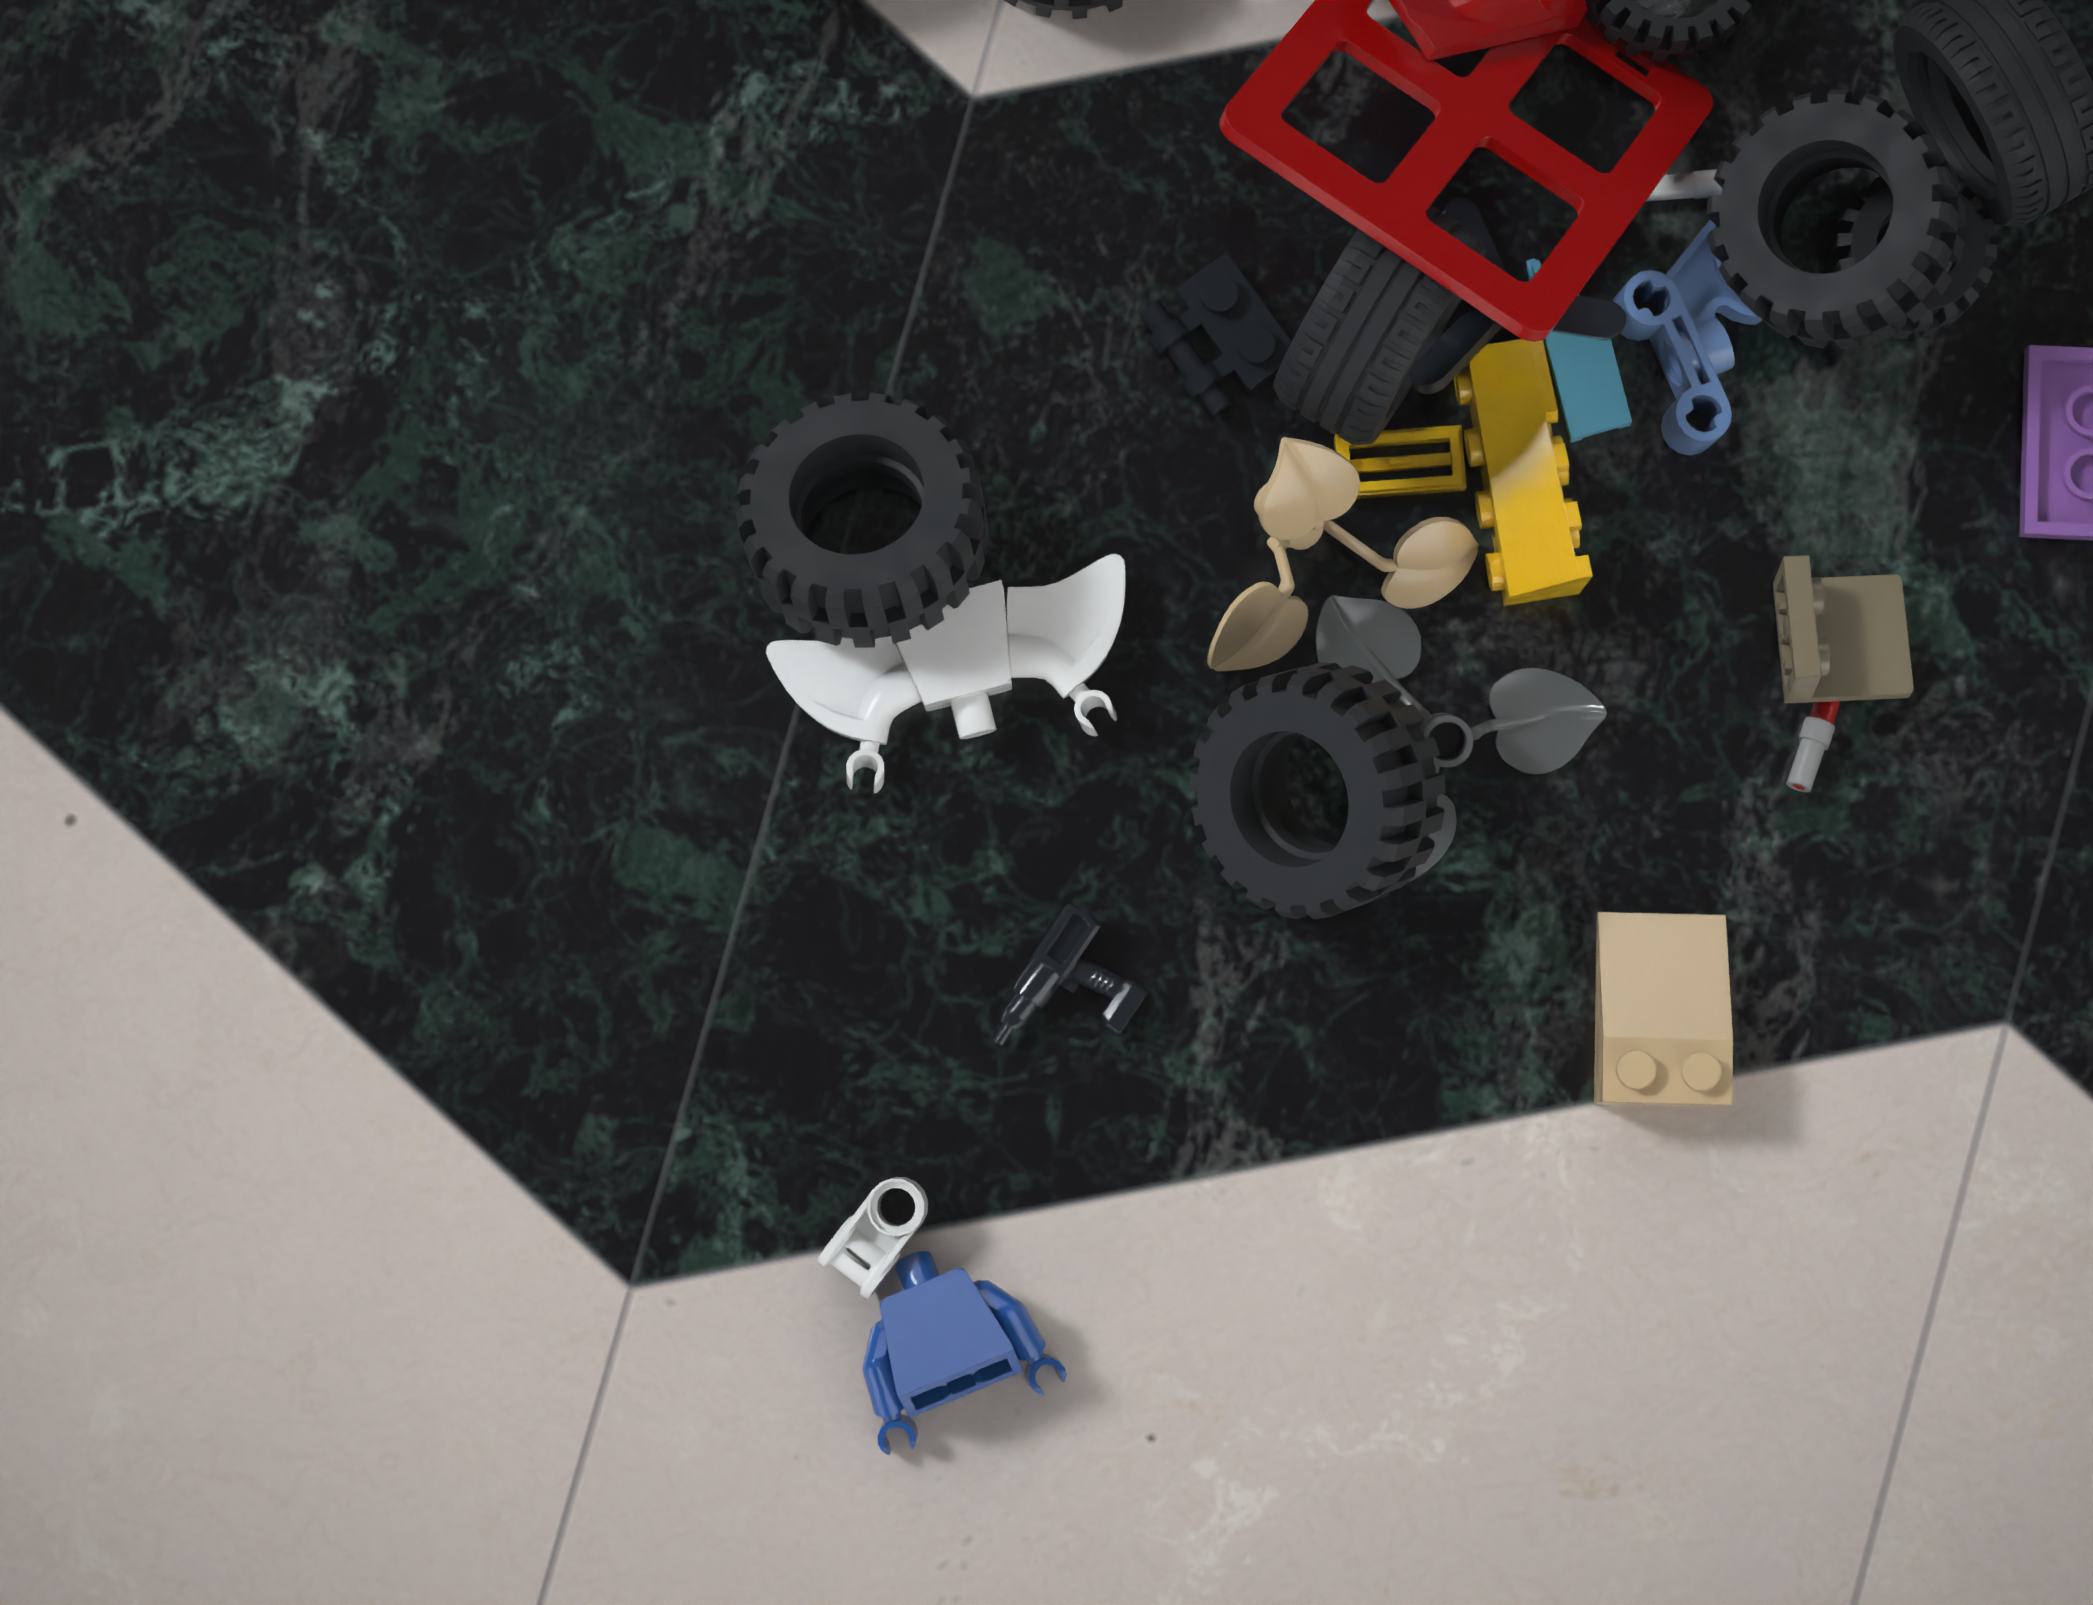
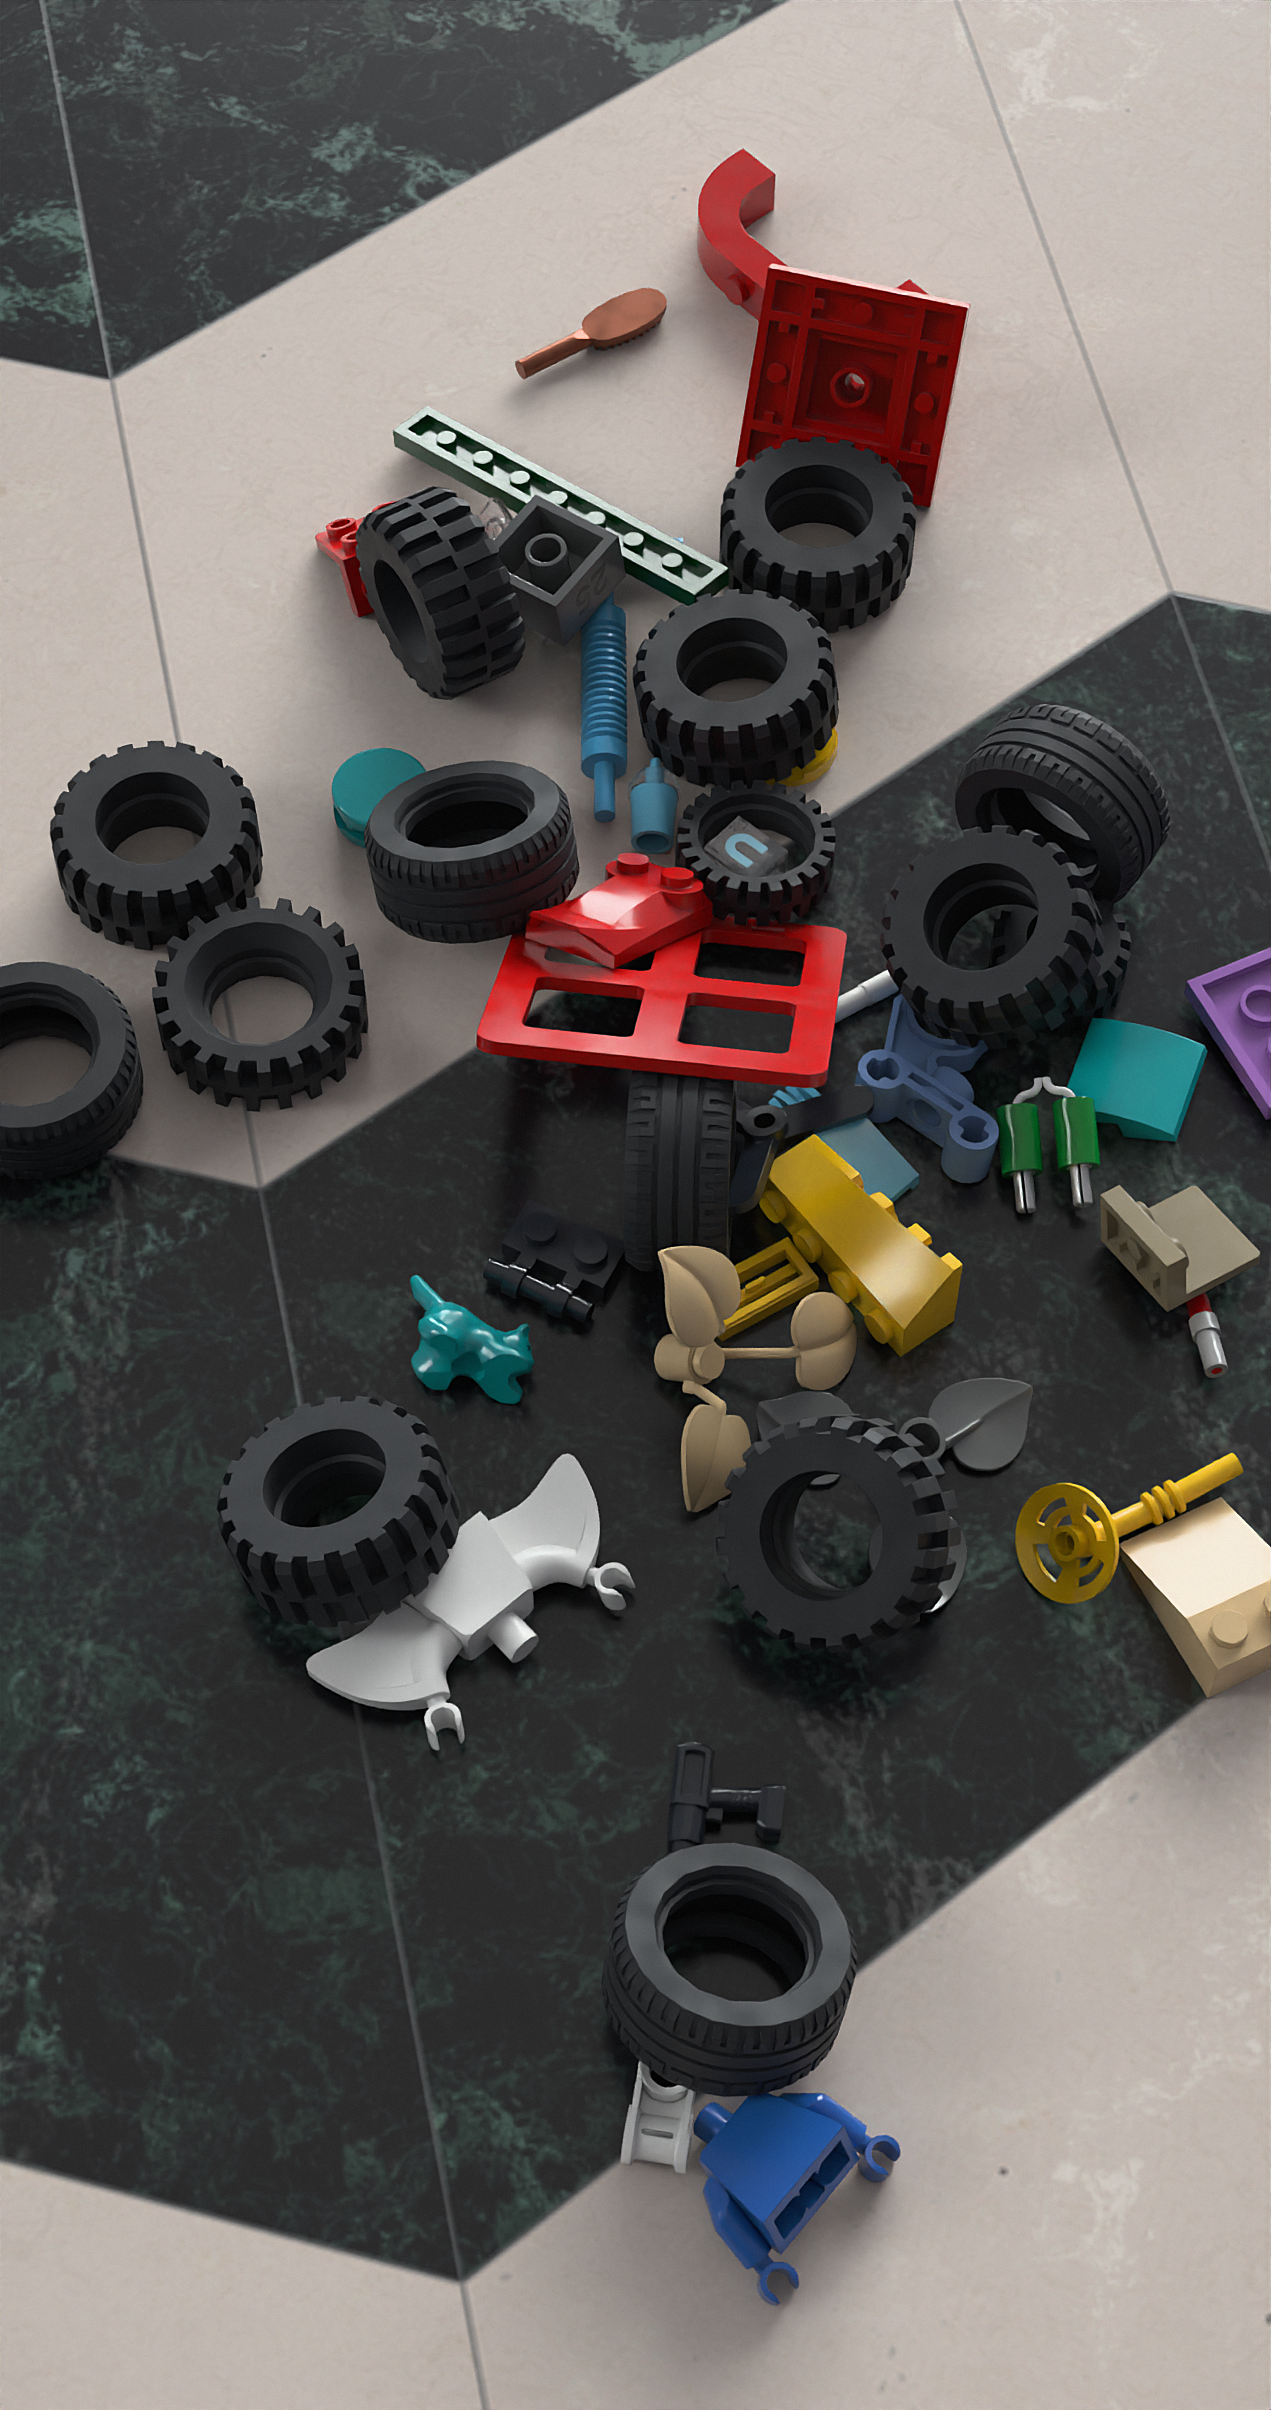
camera: 30 degrees left, 25 degrees down
(1052, 1092) = (703, 2038): none -> black tyre
(1074, 382) = (463, 1345): none -> teal animal
(1561, 895) = (1099, 1539): none -> yellow dish
(1803, 471) = (1074, 1139): none -> green piece
(1908, 427) = (1137, 1077): none -> teal slope

